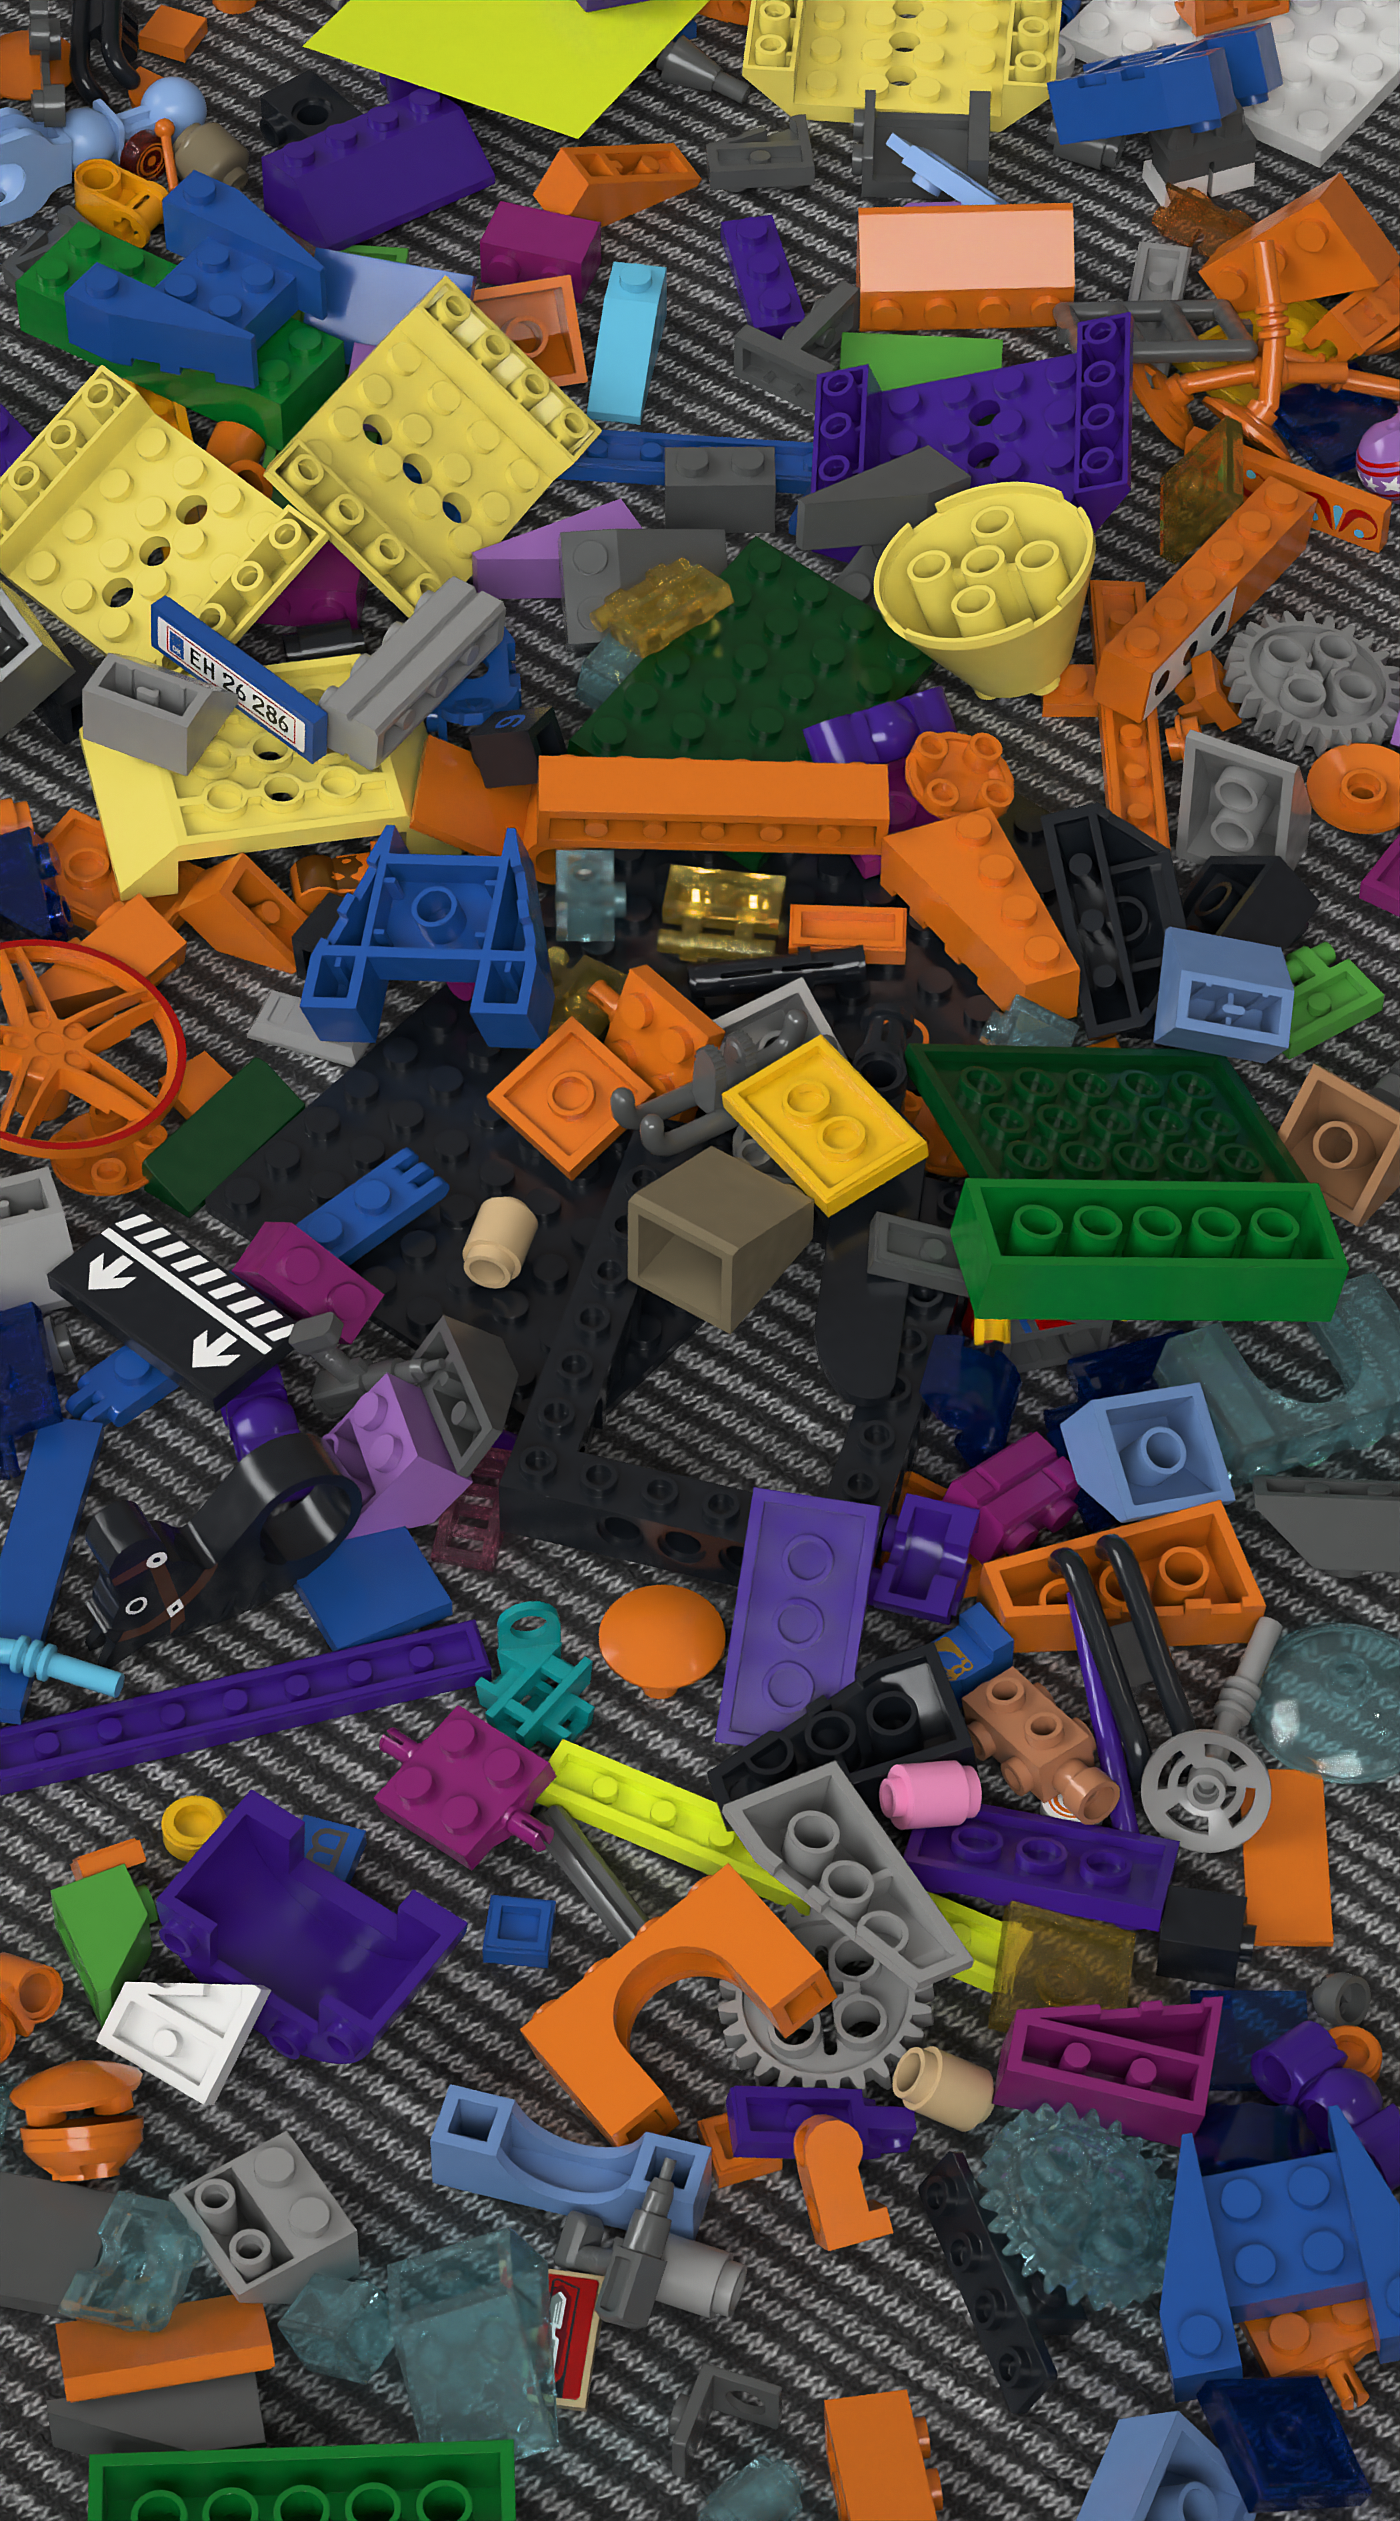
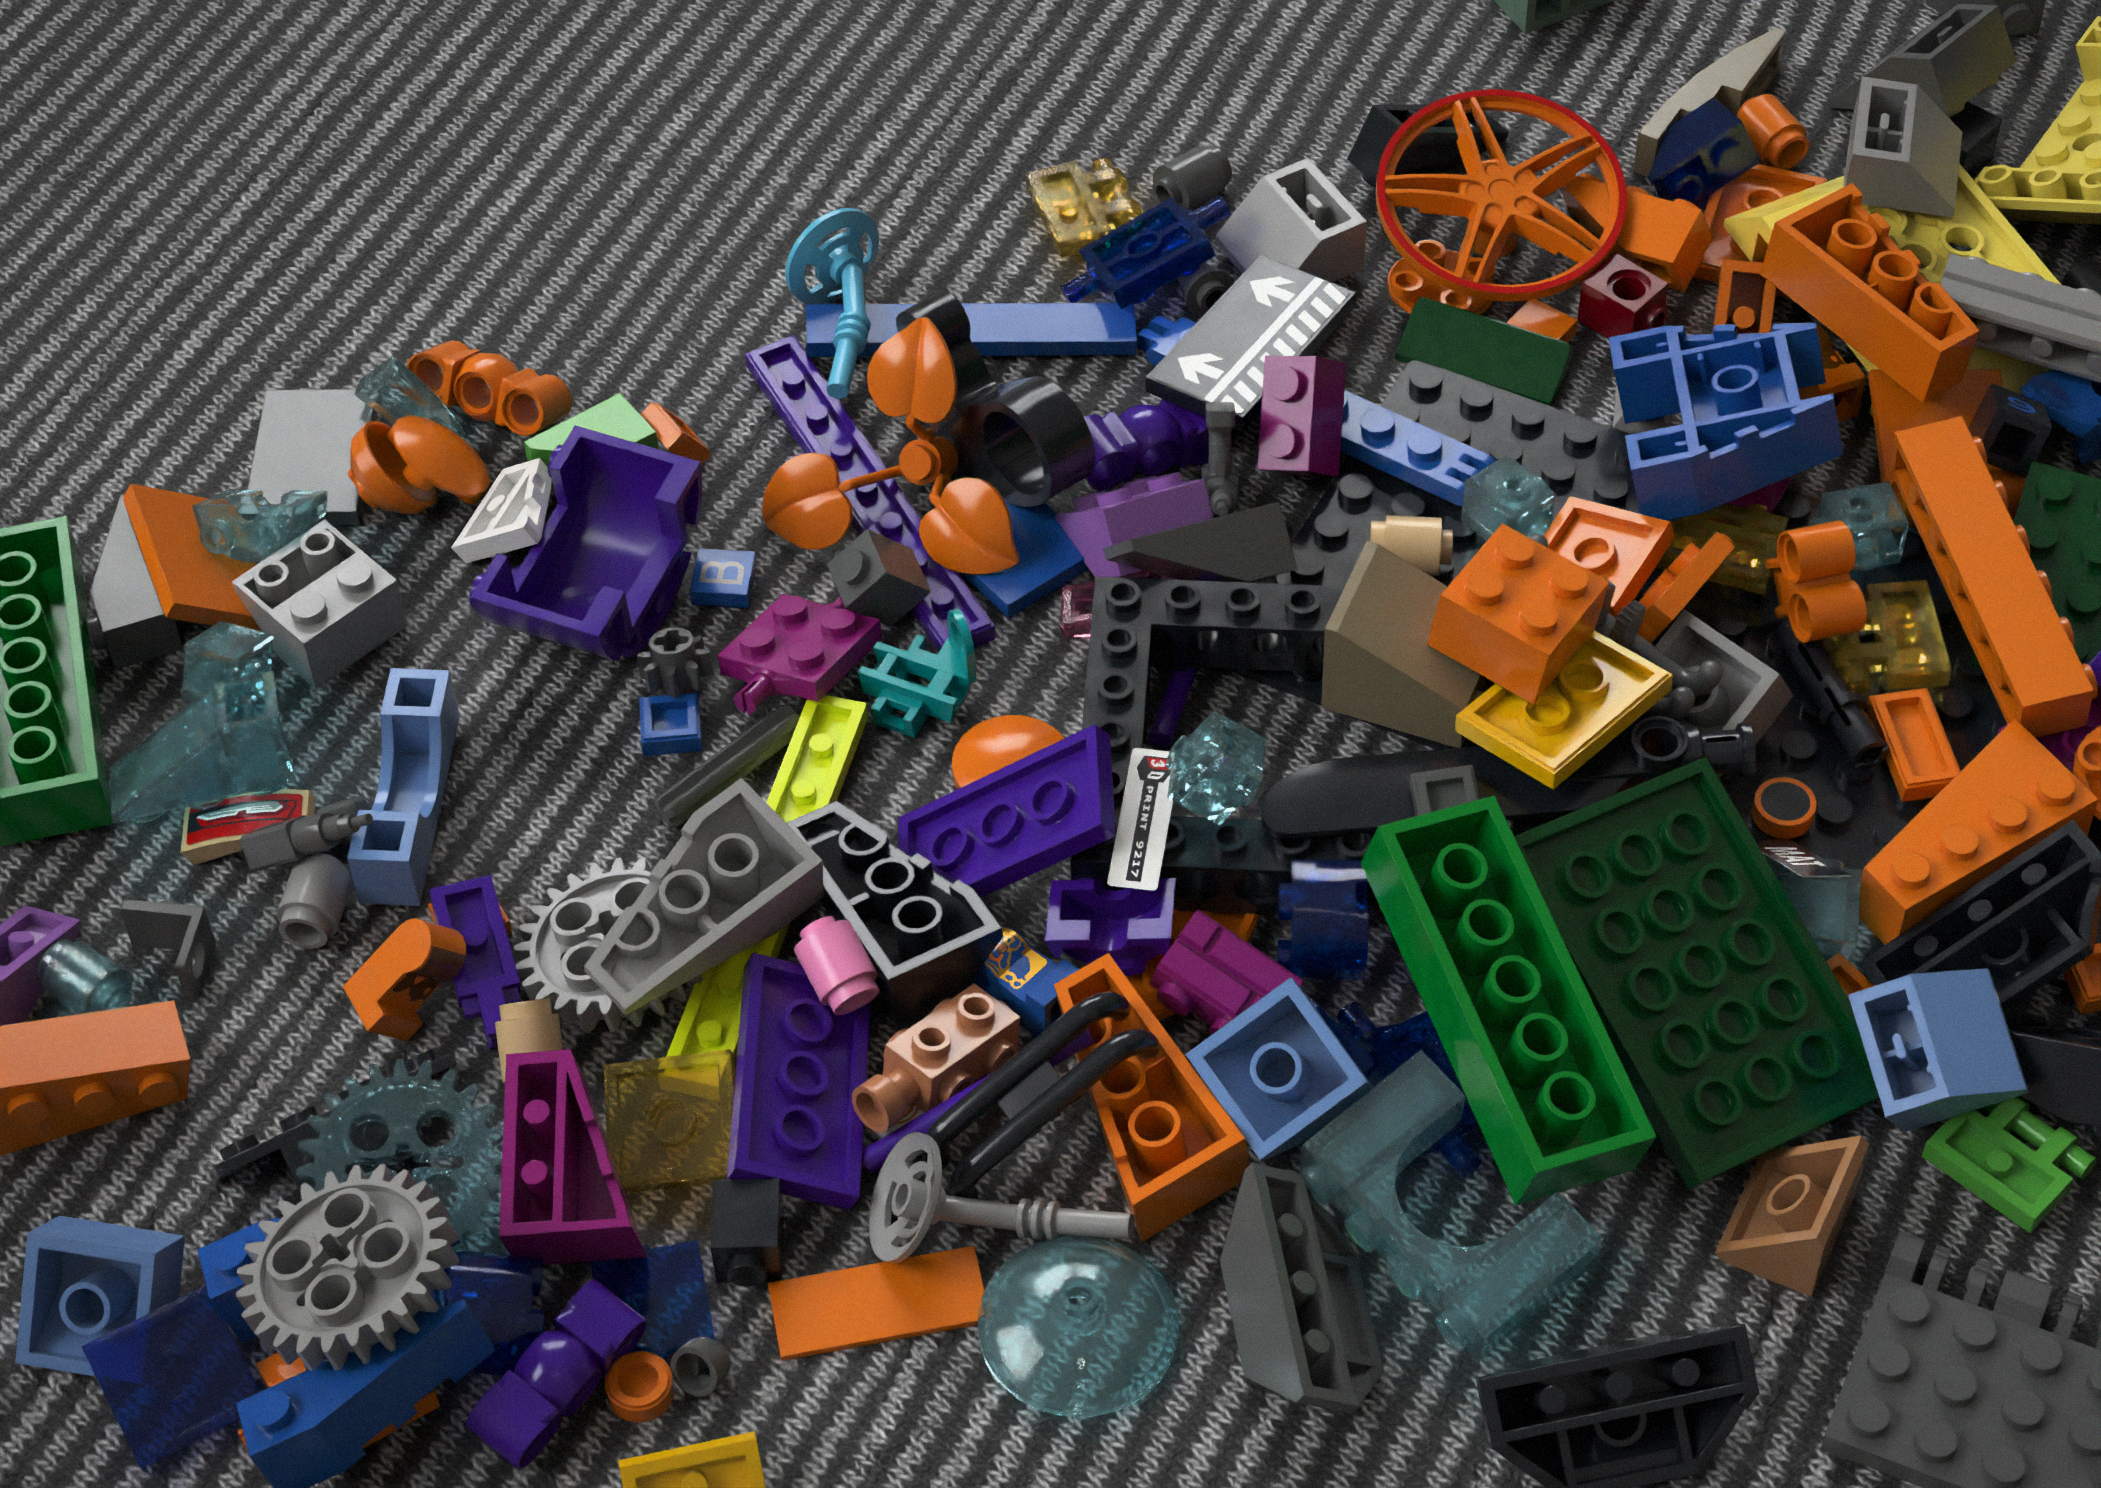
camera: 80 degrees right, 0 degrees up
(190, 1824) = (734, 491): yellow tile -> none
(202, 1573) = (971, 520): none -> orange plant
(205, 1003) = (1622, 298): none -> dark red brick
(222, 664) = (1973, 198): tile -> none
(347, 780) = (1870, 292): none -> orange wedge
(401, 1695) = (878, 577): none -> dark grey brick
(462, 1895) = (675, 662): none -> dark grey gear
(474, 1151) = (1508, 496): none -> clear light blue brick
(677, 931) = (1816, 582): none -> orange piece
(712, 1932) = (550, 775): orange arch -> none
(746, 1112) = (1517, 613): none -> orange brick
(825, 1409) = (1216, 768): none -> clear light blue brick
(900, 1513) = (1142, 822): none -> white sticker
(1015, 1020) = (1798, 858): none -> black sticker
(1321, 2171) = (347, 1267): none -> light grey gear

